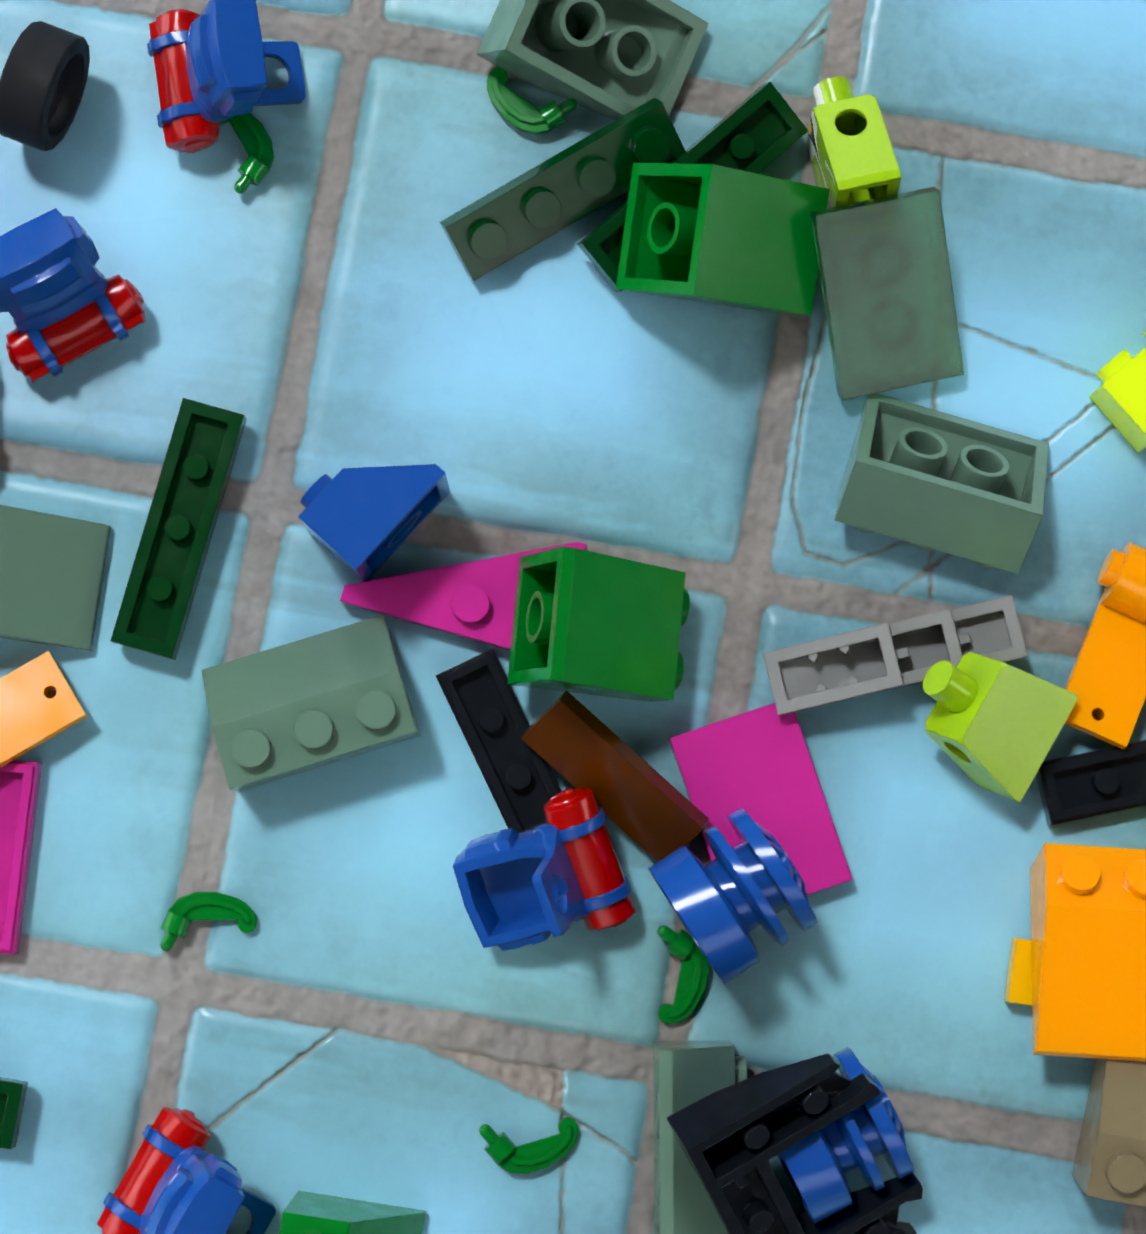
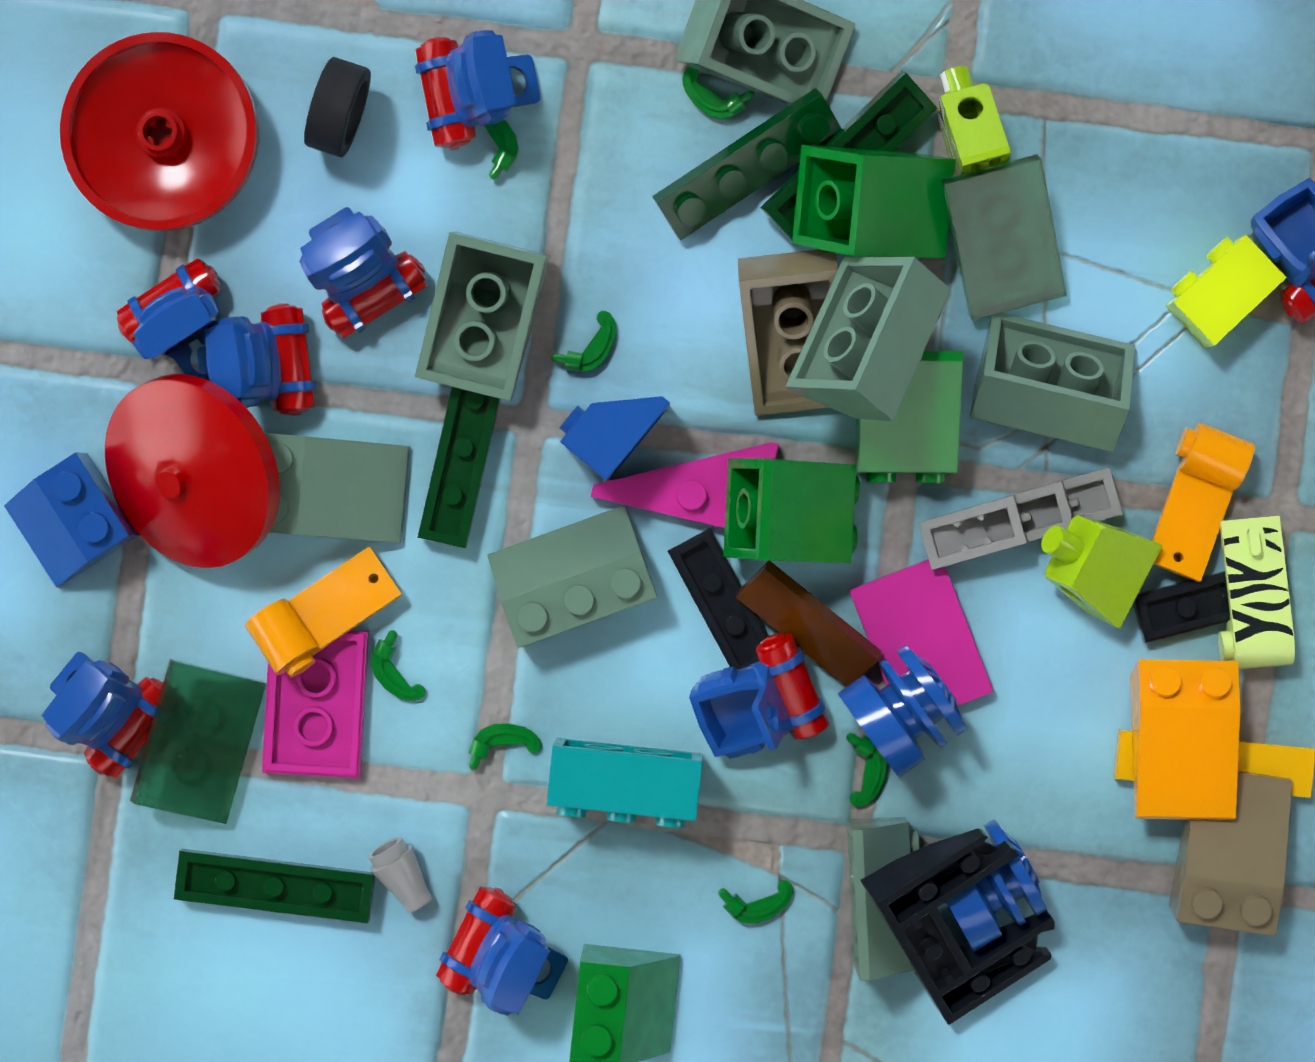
camera: 10 degrees right, 5 degrees up
(59, 1084) = (400, 873): none -> light grey cone
(63, 821) = (387, 673): none -> green piece
(211, 356) = (482, 315): none -> sand green slope
(357, 416) = (596, 349): none -> green piece
(359, 974) = (624, 782): none -> teal brick
(614, 402) = (779, 308): none -> dark tan slope
(710, 397) = (869, 336): none -> sand green slope
(755, 509) = (925, 427): none -> green slope

